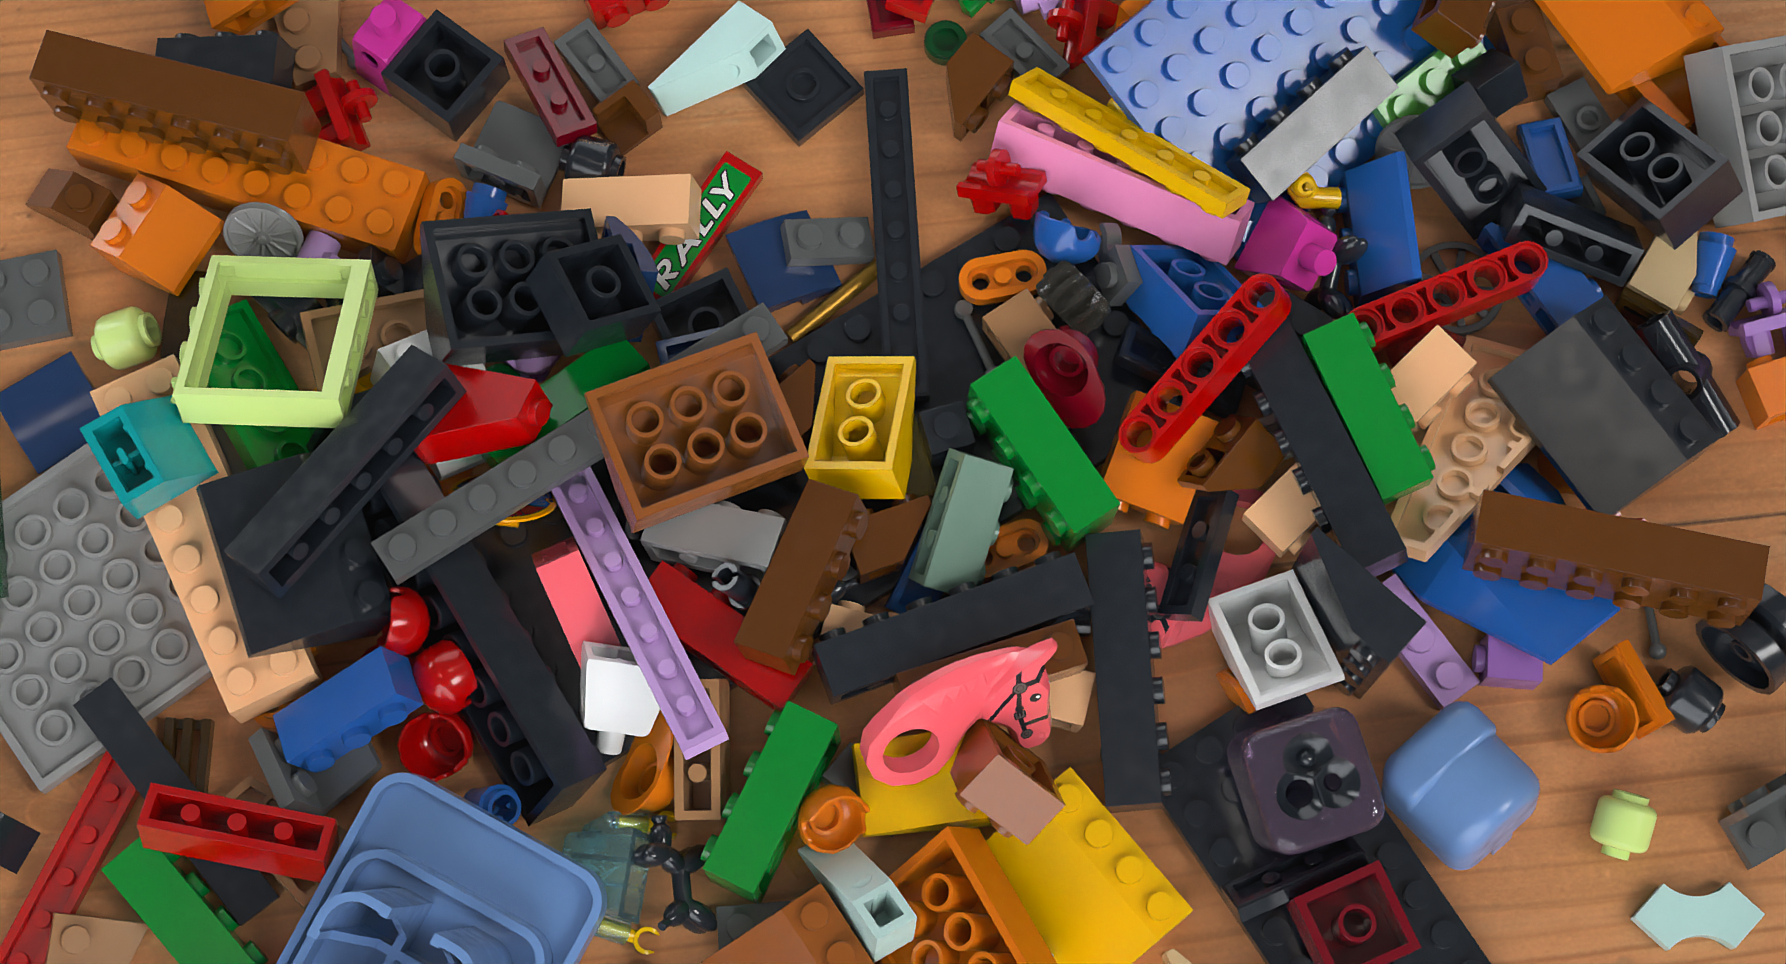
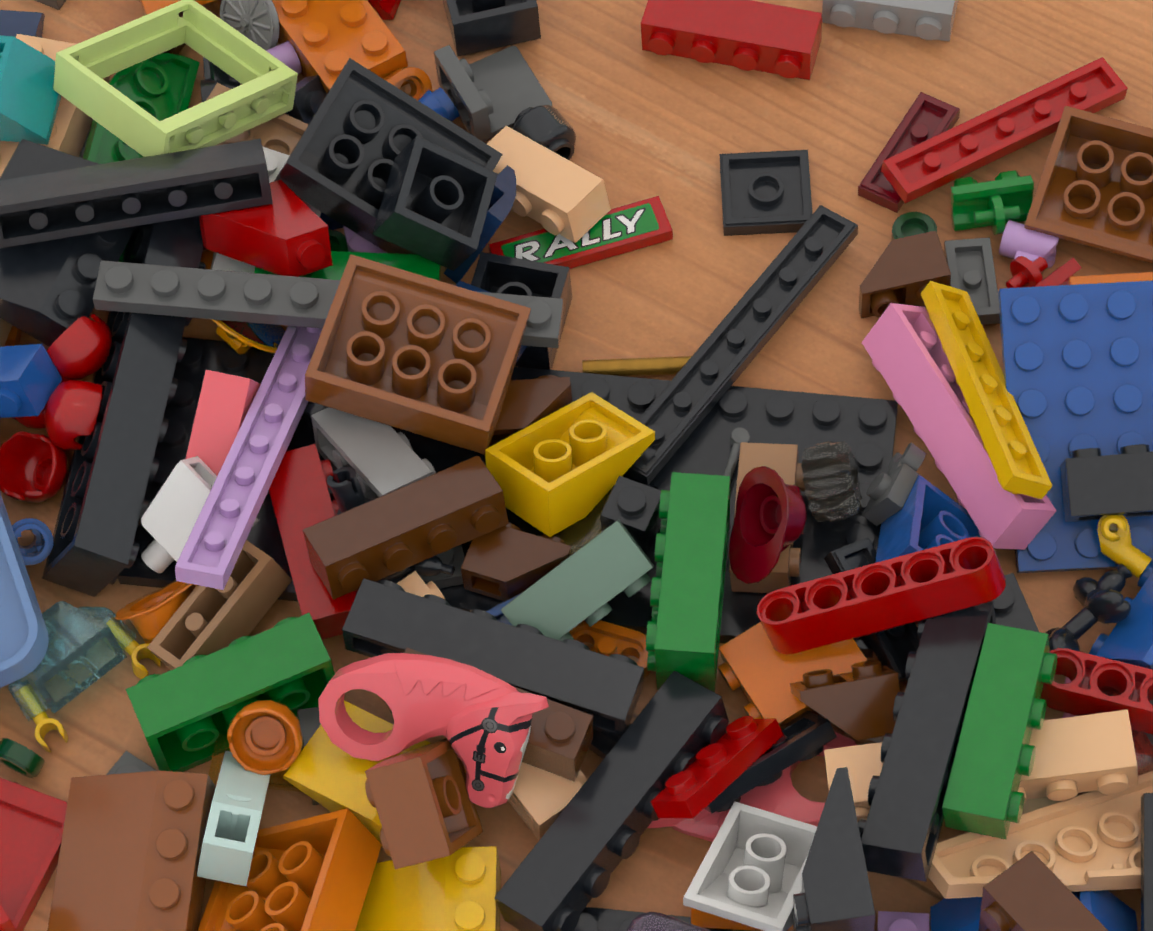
camera: 45 degrees right, 15 degrees down
(126, 338) = (85, 20): yellowish green head -> none
(550, 86) = (561, 58): dark red plate -> none
(593, 60) = (614, 69): dark grey plate -> none
(627, 117) = (602, 120): reddish brown panel -> none
(680, 864) = (96, 726): black piece -> none
(722, 58) = (709, 123): light aqua slope -> none
(764, 267) = (628, 306): dark blue slope -> none
(827, 241) = (673, 312): dark grey plate -> none
(1000, 274) = (794, 424): orange plate -> none
(1001, 182) = (856, 363): red hips -> none
(1063, 241) = (867, 440): blue hair -> none
(1179, 585) = (716, 767): none -> red plate
(1289, 247) = (1060, 571): dark pink torso -> none

